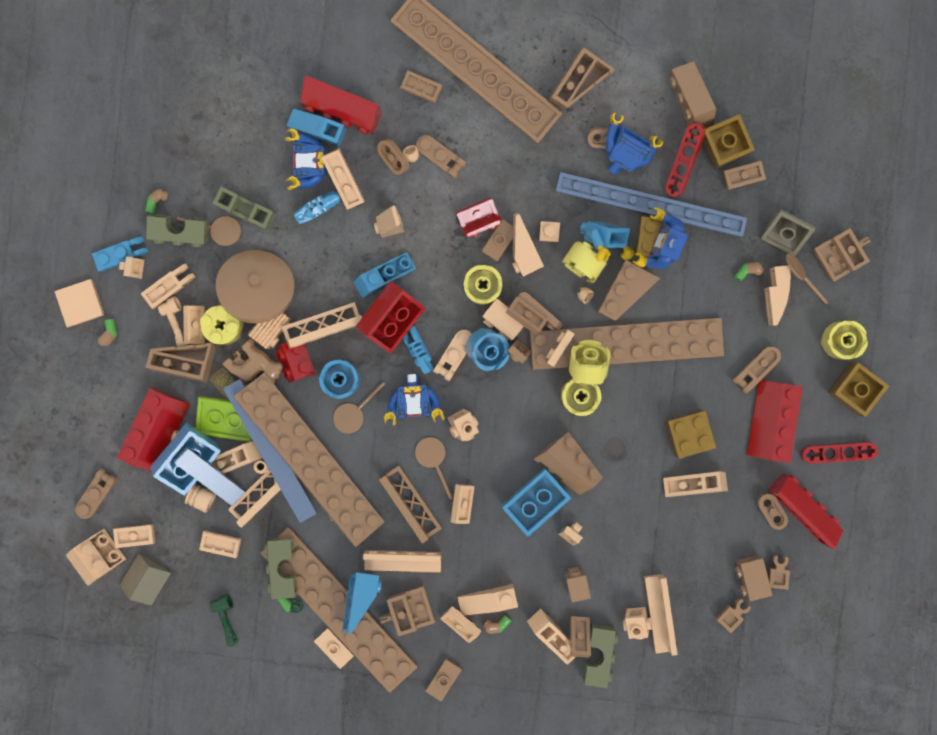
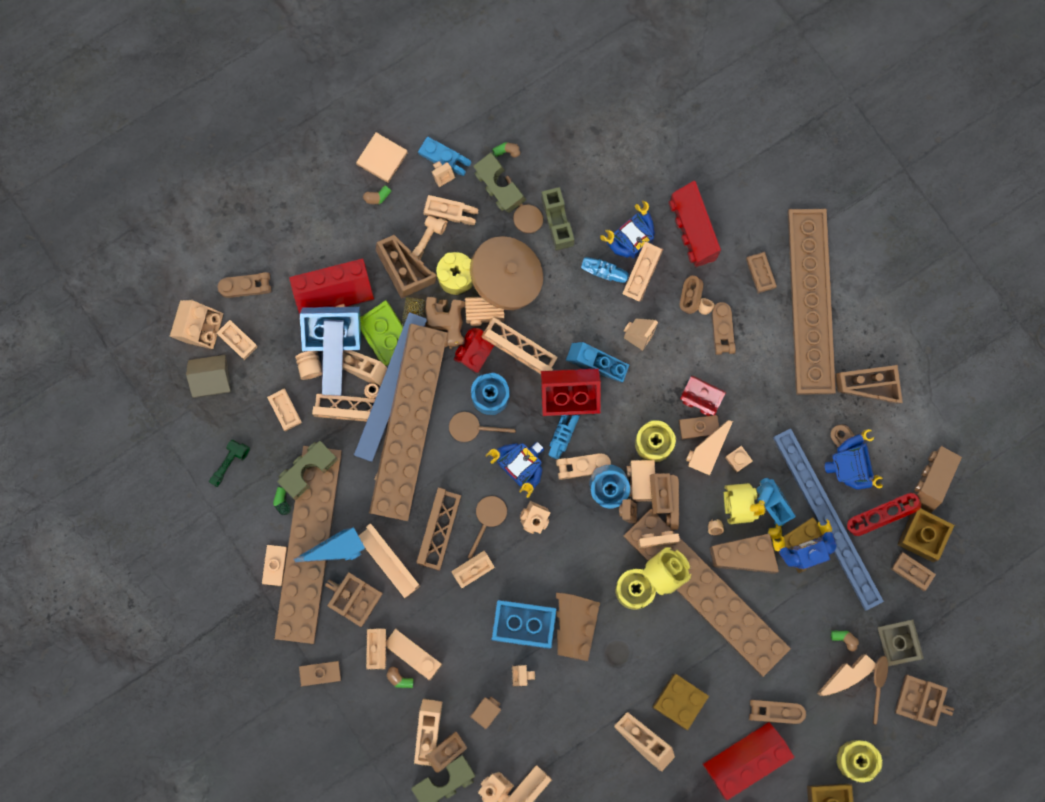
camera: 45 degrees right, 10 degrees down
(192, 325) = (436, 251): light nougat plate -> none
(317, 127) = (664, 222): dark azure slope -> none

